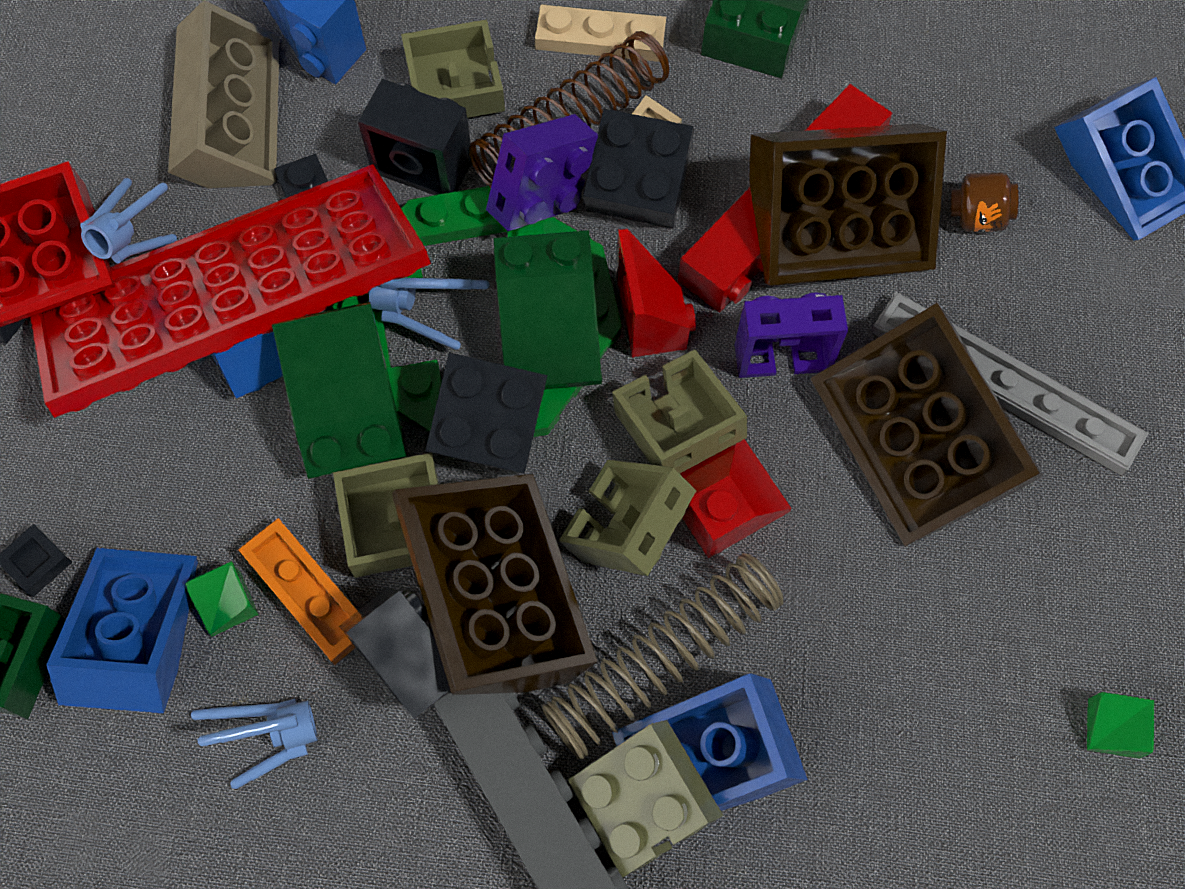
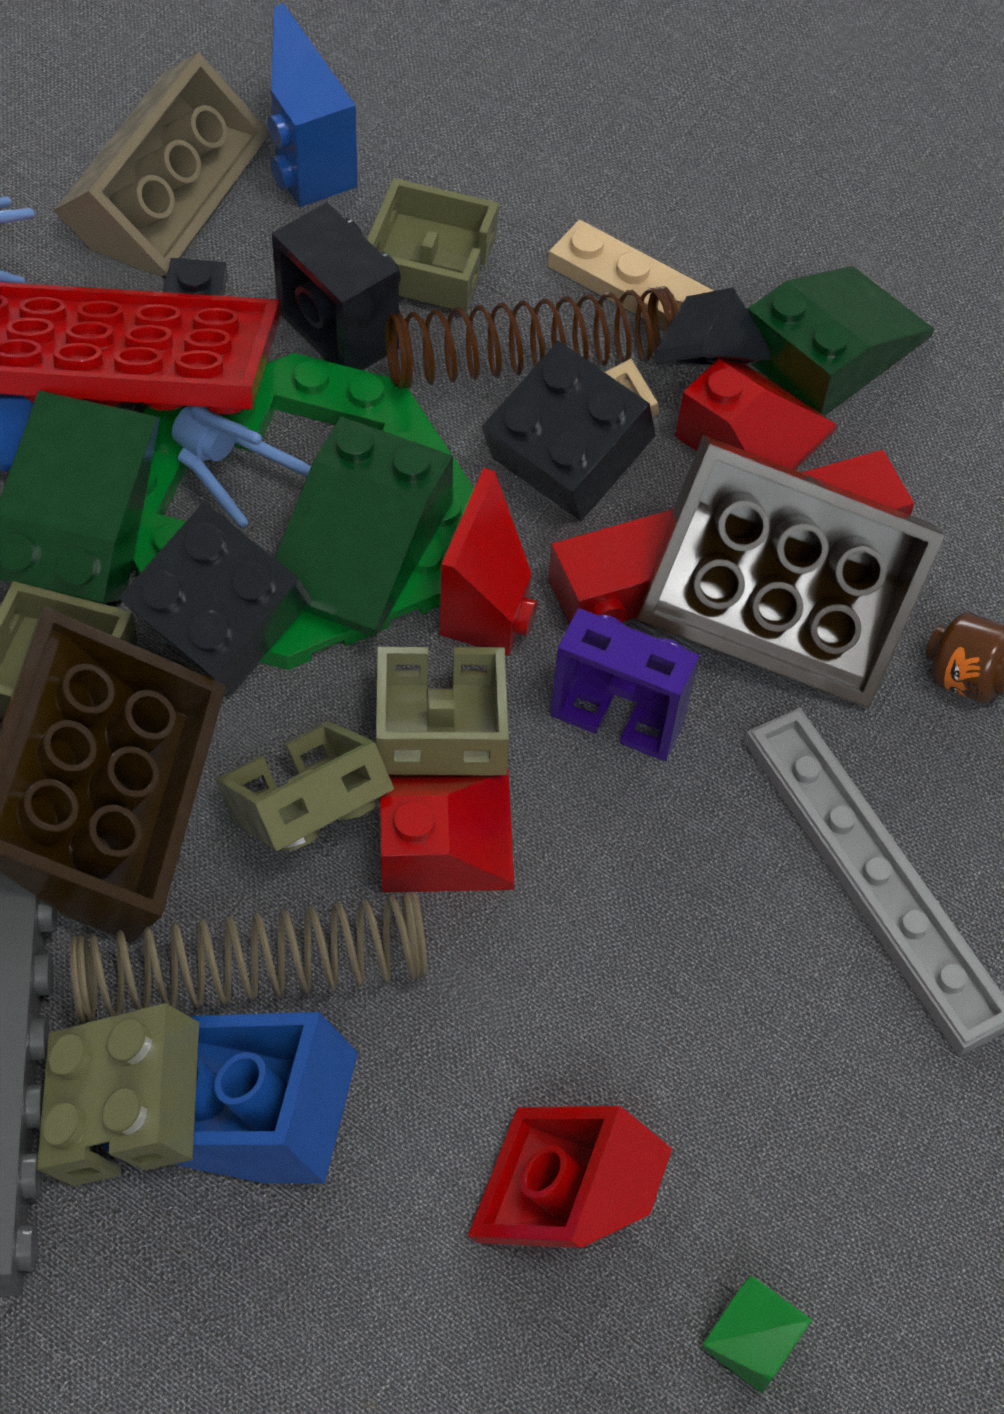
camera: 25 degrees right, 10 degrees down
(544, 174) = (446, 377): dark purple piece -> none
(691, 50) = (711, 329): none -> black slope
(744, 103) = (750, 414): none -> red slope
(925, 426) = (734, 868): dark brown slope -> none
(954, 693) = (570, 1177): none -> red slope

